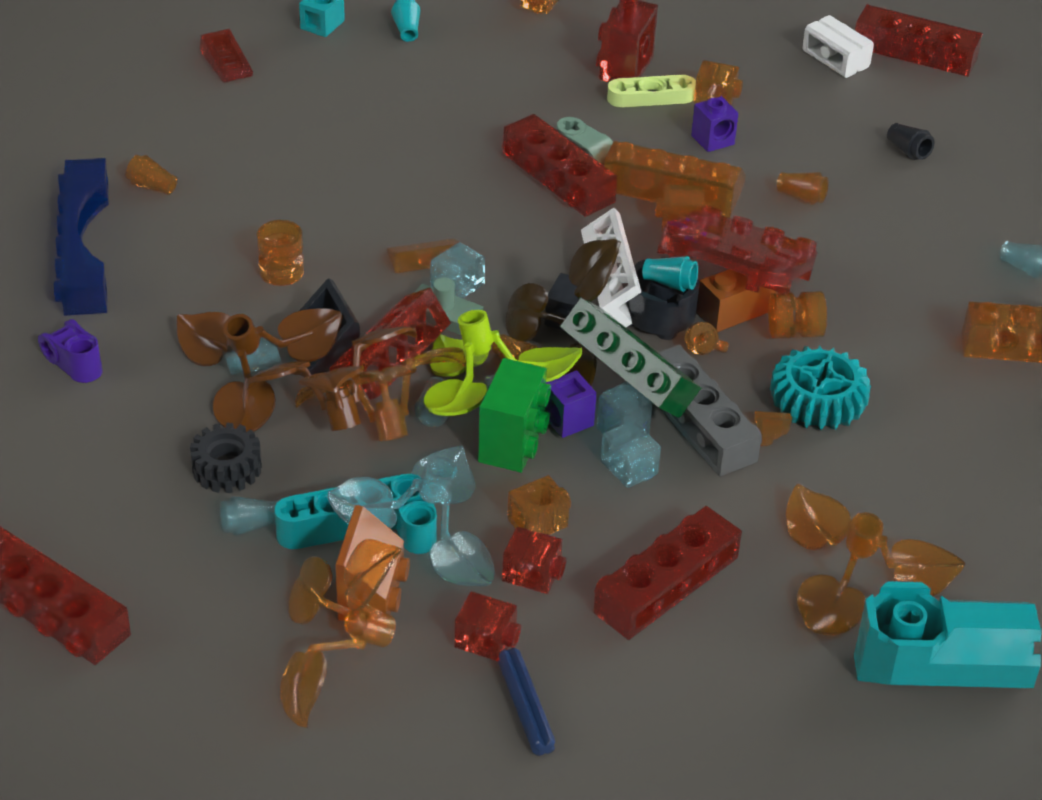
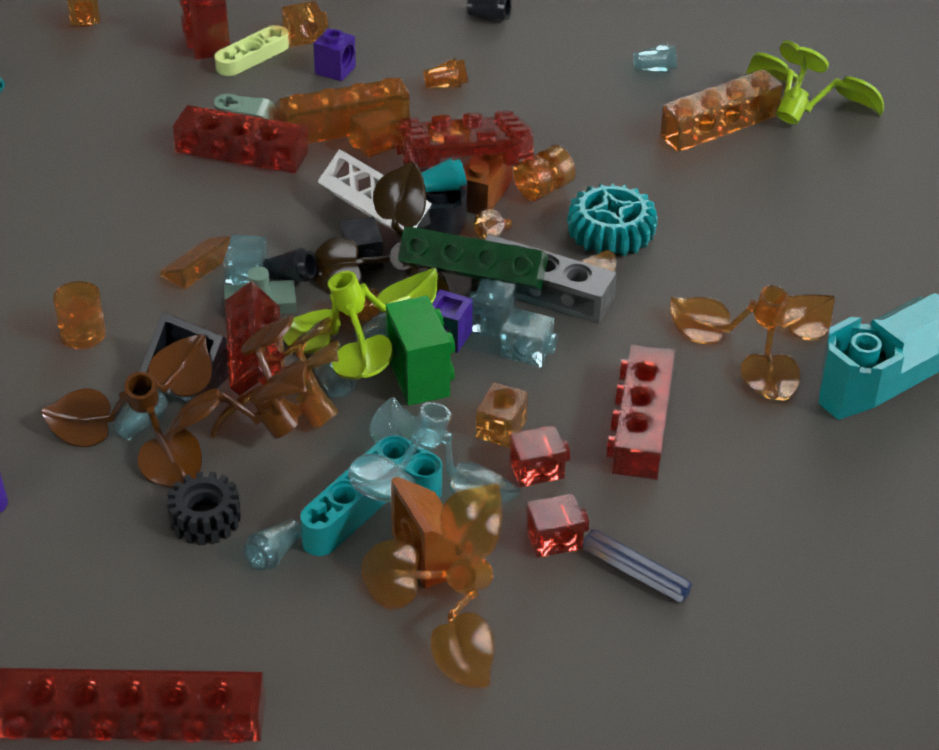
camera: 35 degrees left, 0 degrees up
(493, 294) = (292, 265): none -> black cone

